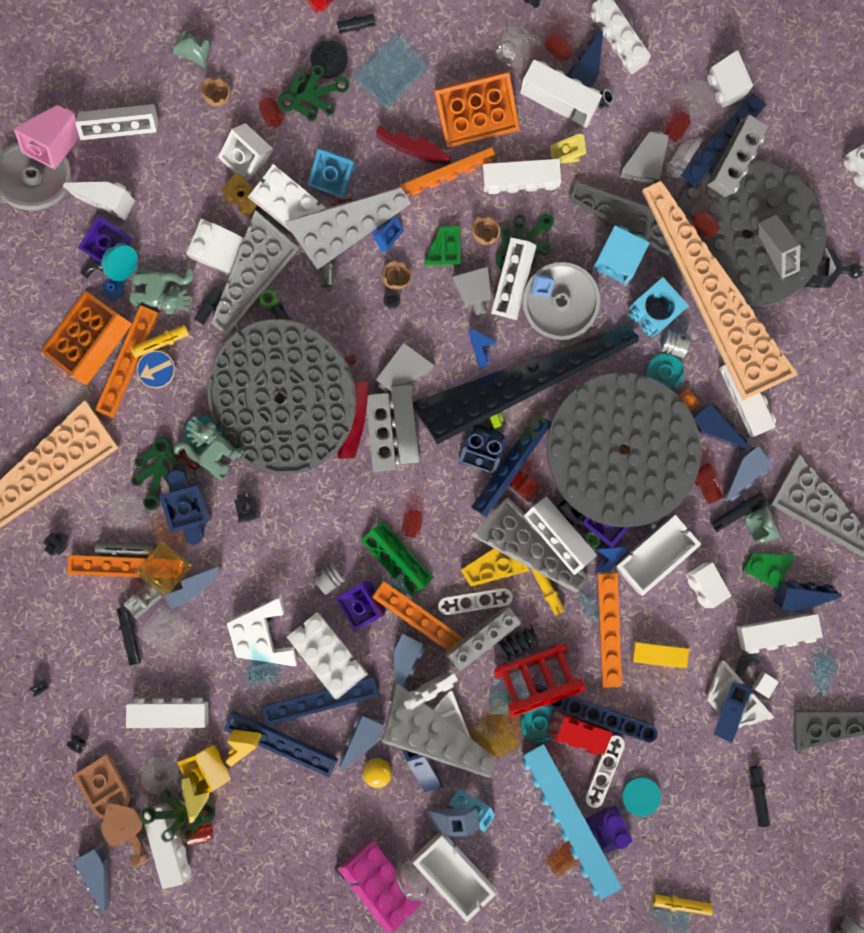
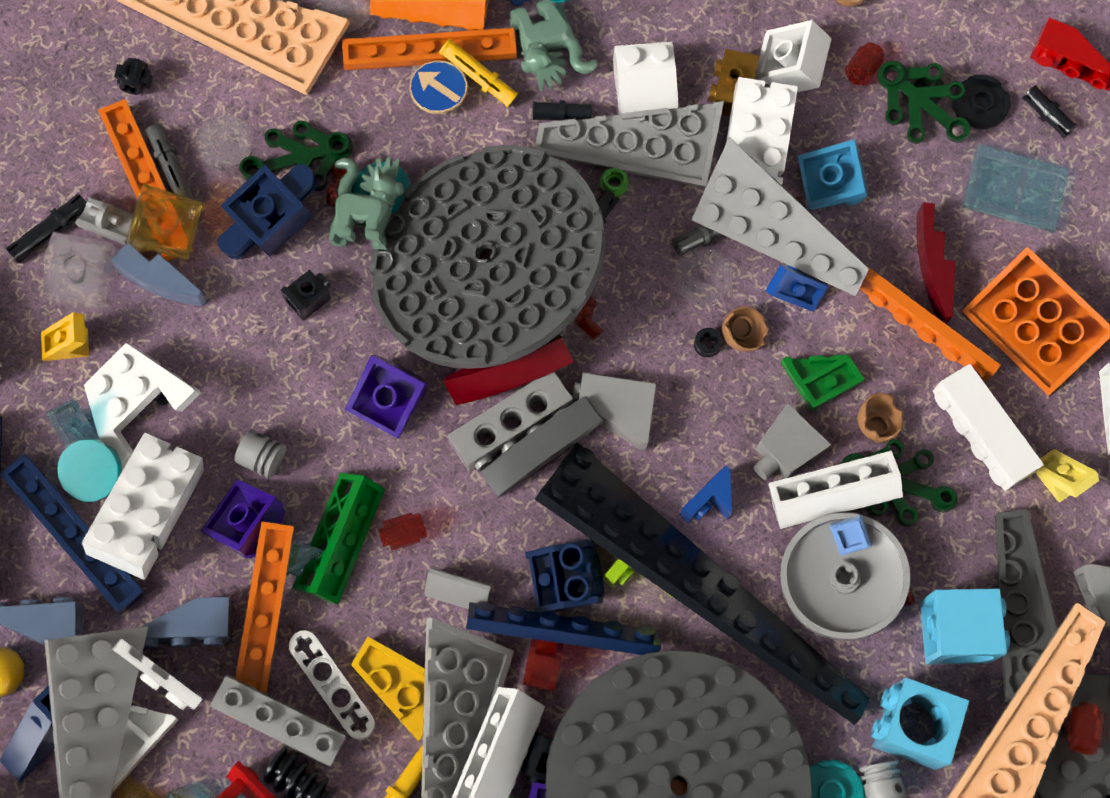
camera: 55 degrees right, 15 degrees down
(203, 656) = (65, 339): none -> yellow slope
(289, 676) = (89, 469): none -> tile
(330, 493) = (386, 395): none -> dark purple slope
(459, 510) = (455, 588): none -> light grey slope

